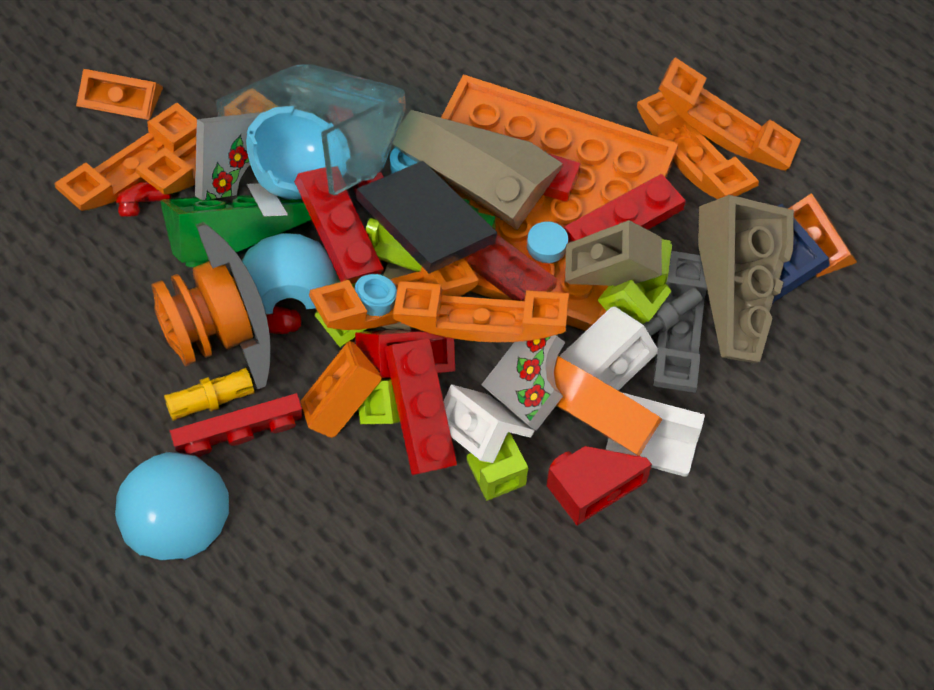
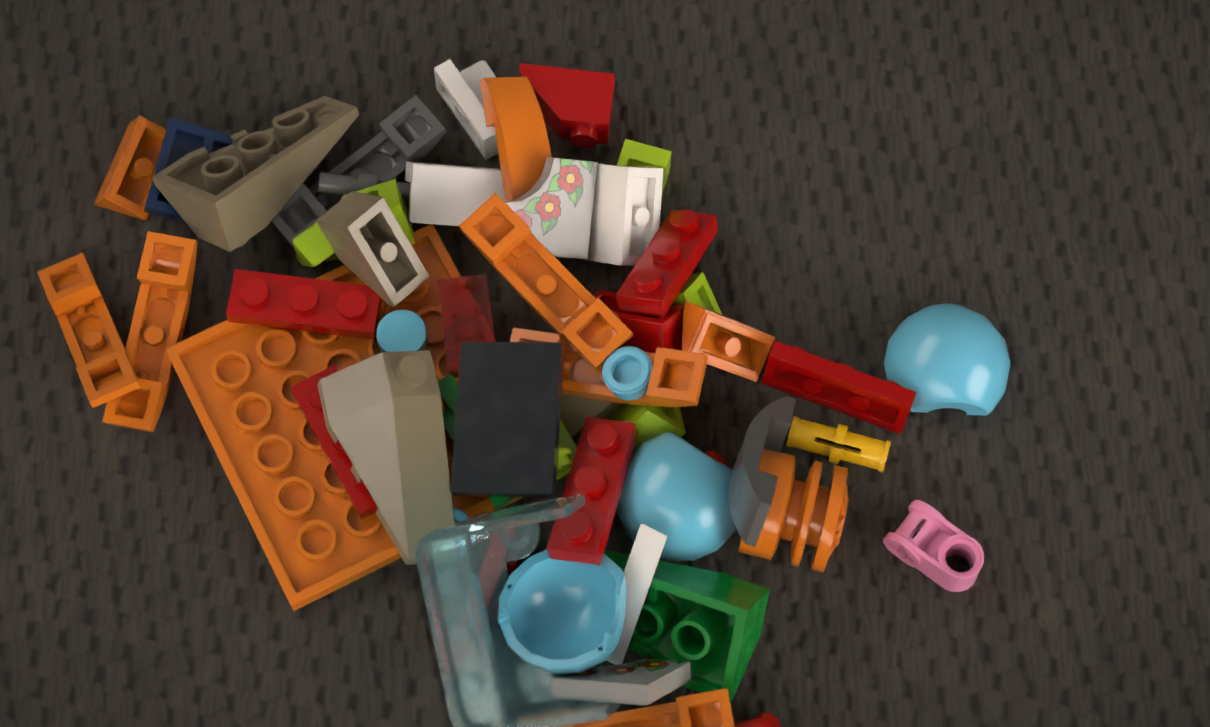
camera: 140 degrees left, 10 degrees up
(93, 373) = (933, 544): none -> bright pink piece

